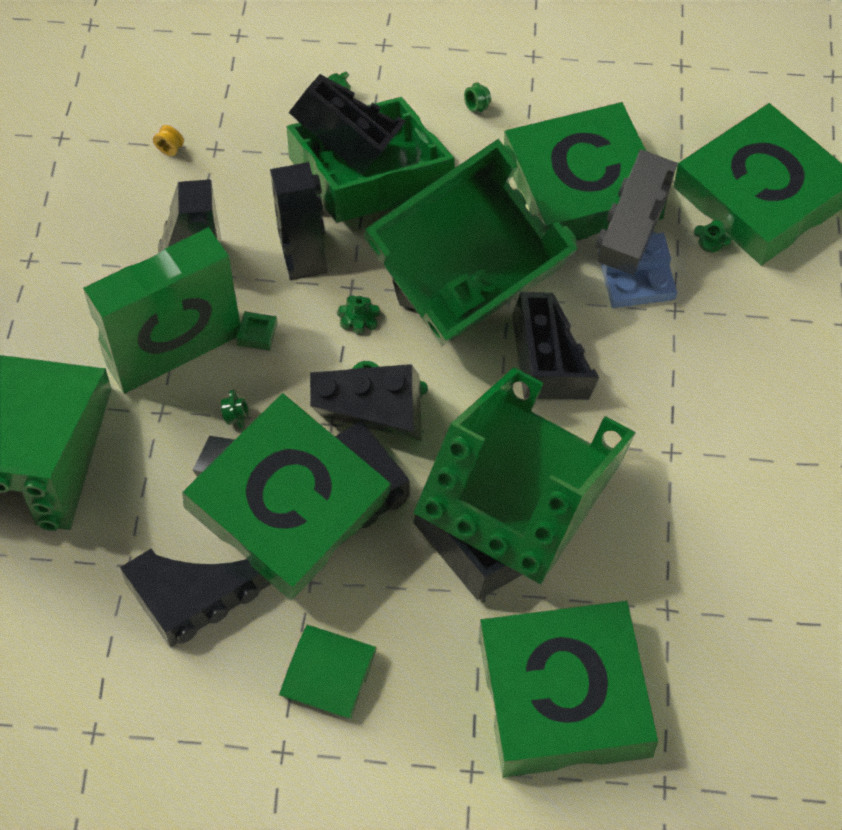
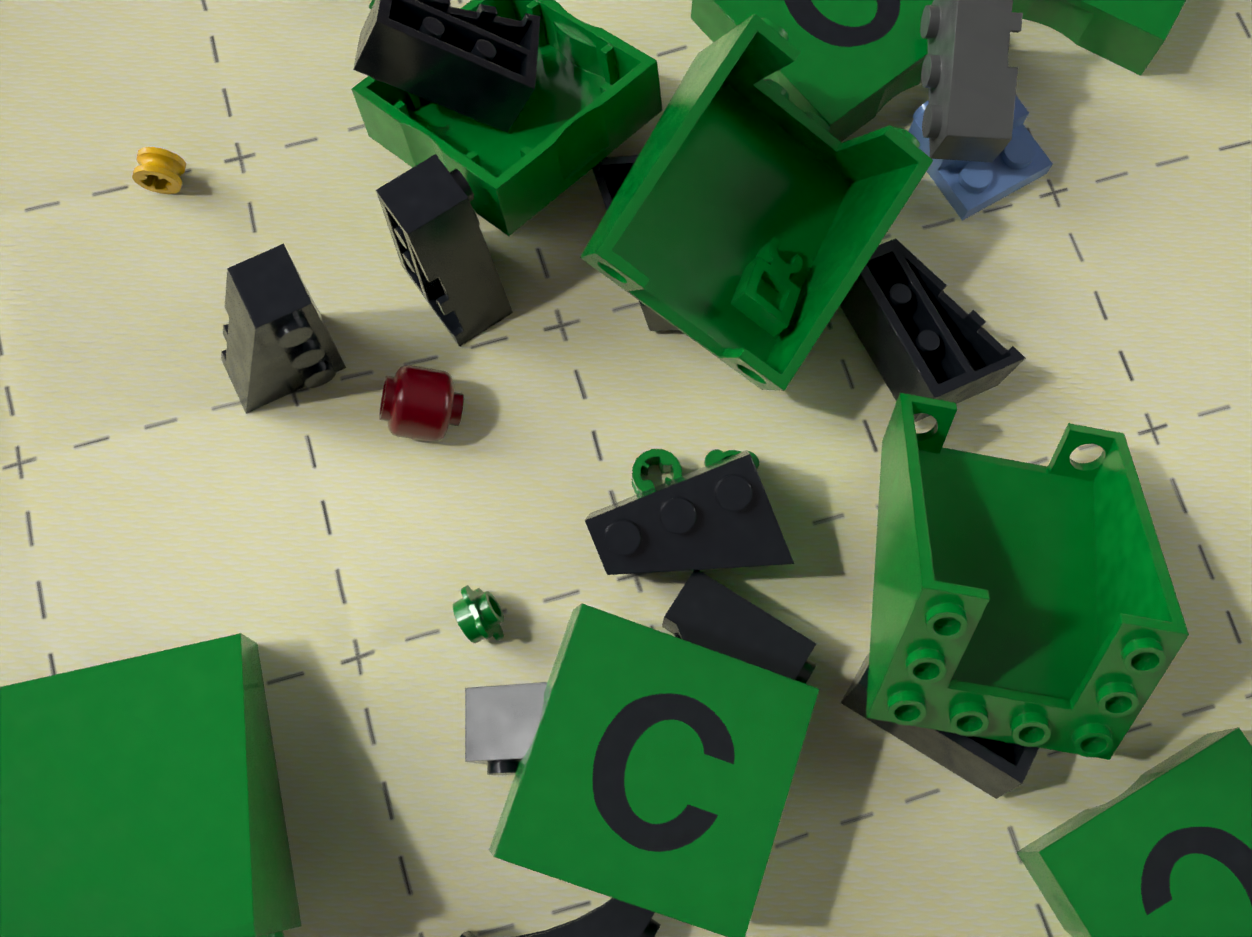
camera: 25 degrees left, 15 degrees up
(165, 310) = (300, 502): green tile -> none
(255, 295) = (420, 403): none -> dark red head
(256, 330) = (452, 460): green plate -> none
(358, 313) = (594, 369): green plant -> none
(712, 243) = (1055, 63): green plate -> none

